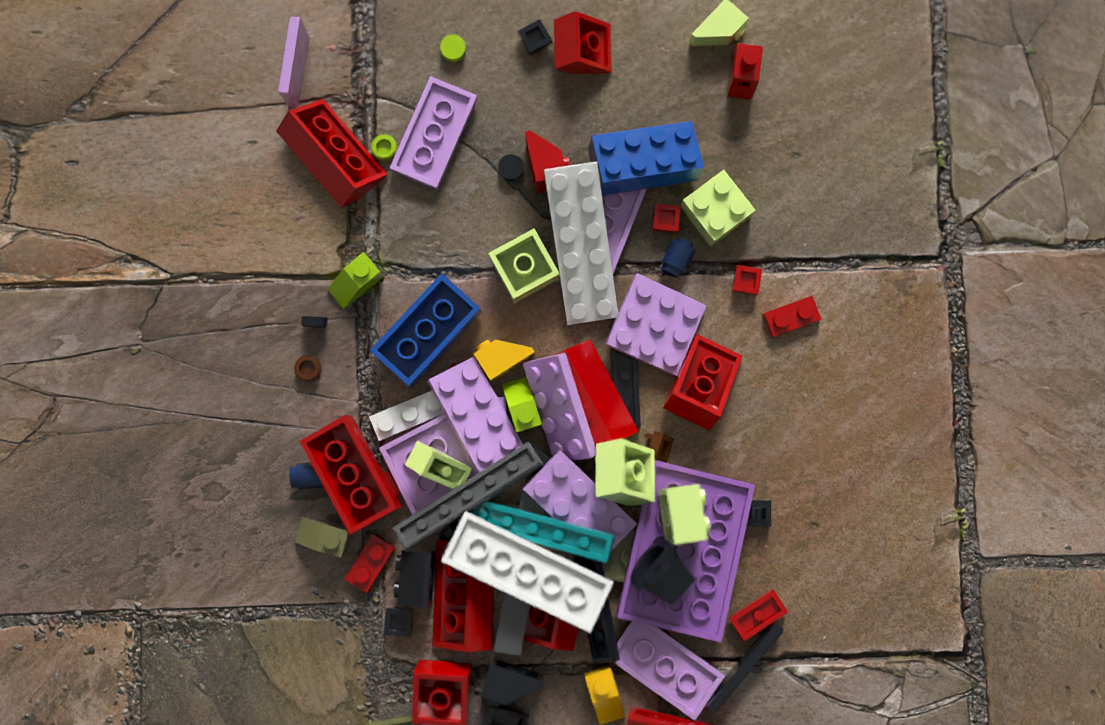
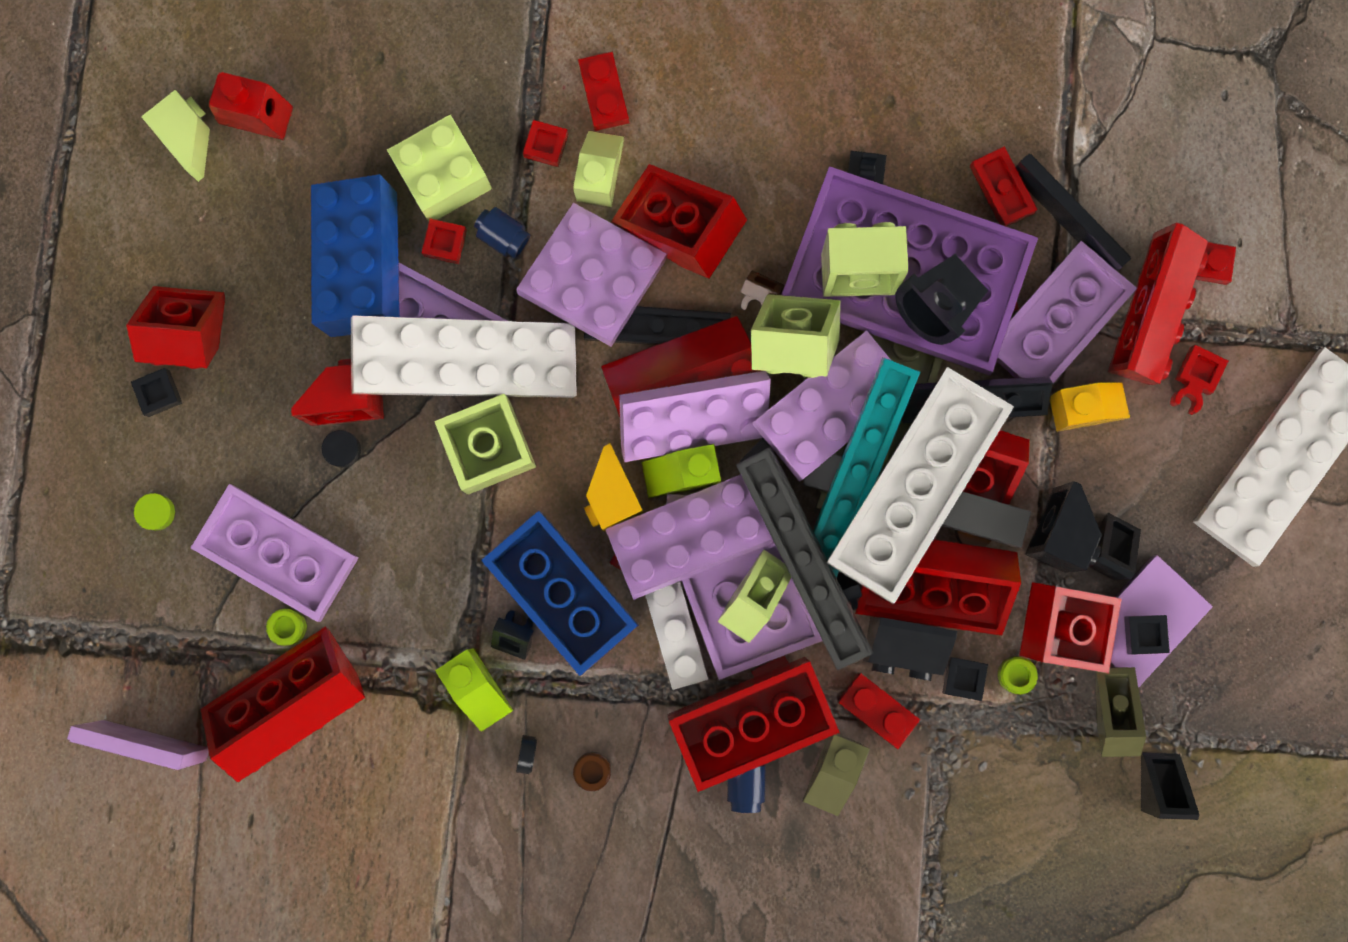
camera: 75 degrees left, 0 degrees up
(393, 301) = (512, 637): none -> black tile
(405, 660) = (1017, 675): none -> lime tile
(734, 319) = (598, 168): none -> yellowish green slope

